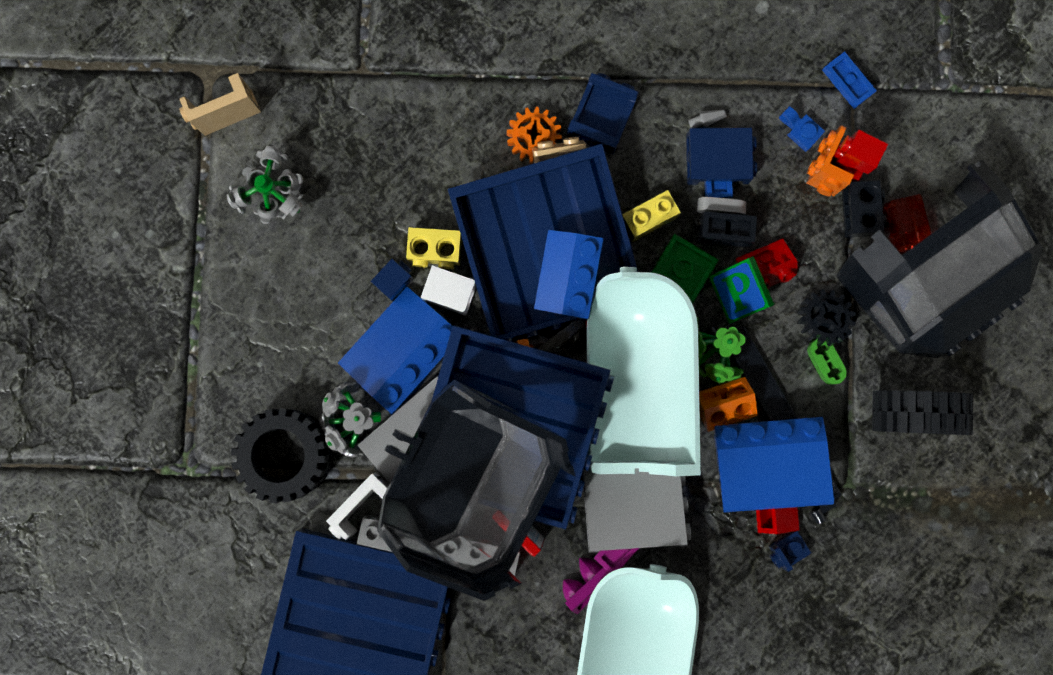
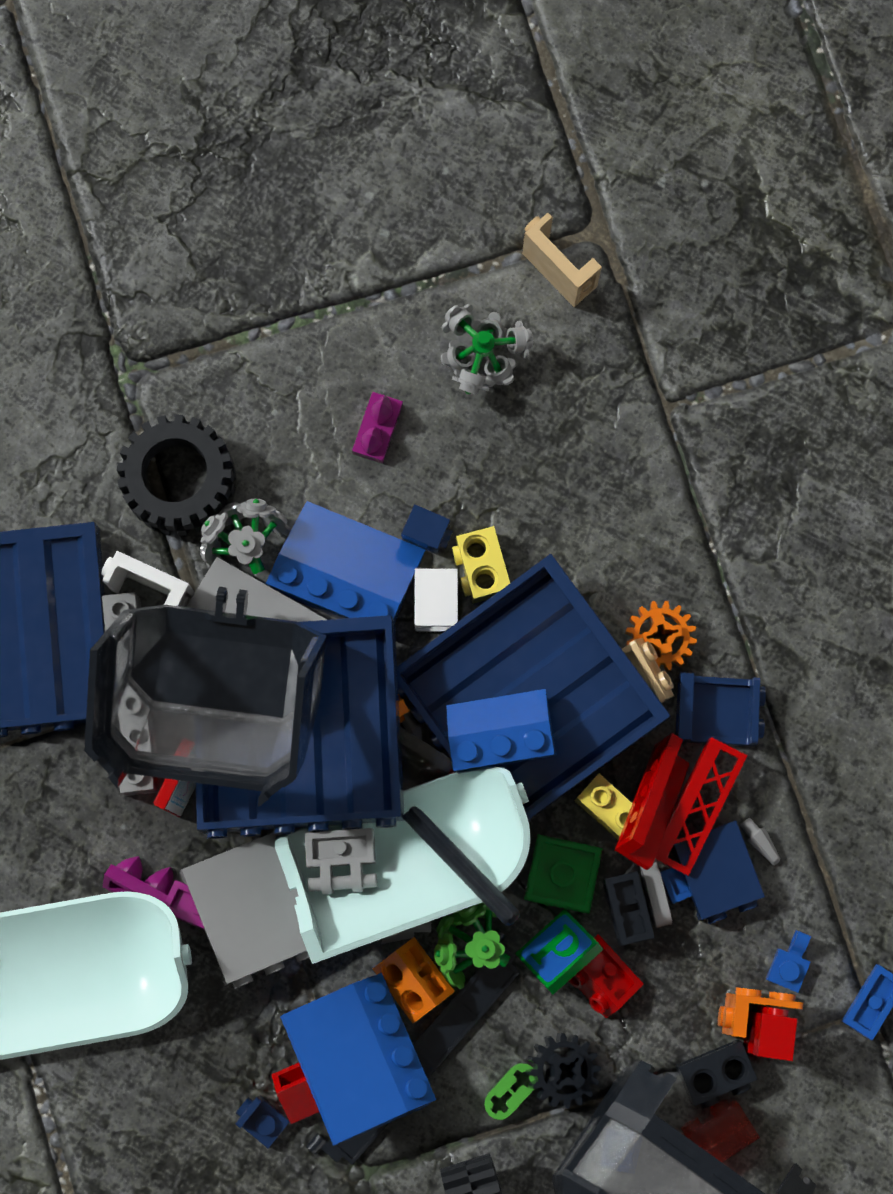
camera: 70 degrees right, 5 degrees down
(300, 290) = (377, 427): none -> magenta tile
(617, 423) = (341, 849): none -> light grey plate
(657, 182) = (653, 803): none -> red panel
(659, 155) = (687, 798): none -> red fence
(665, 336) = (462, 866): none -> black axle

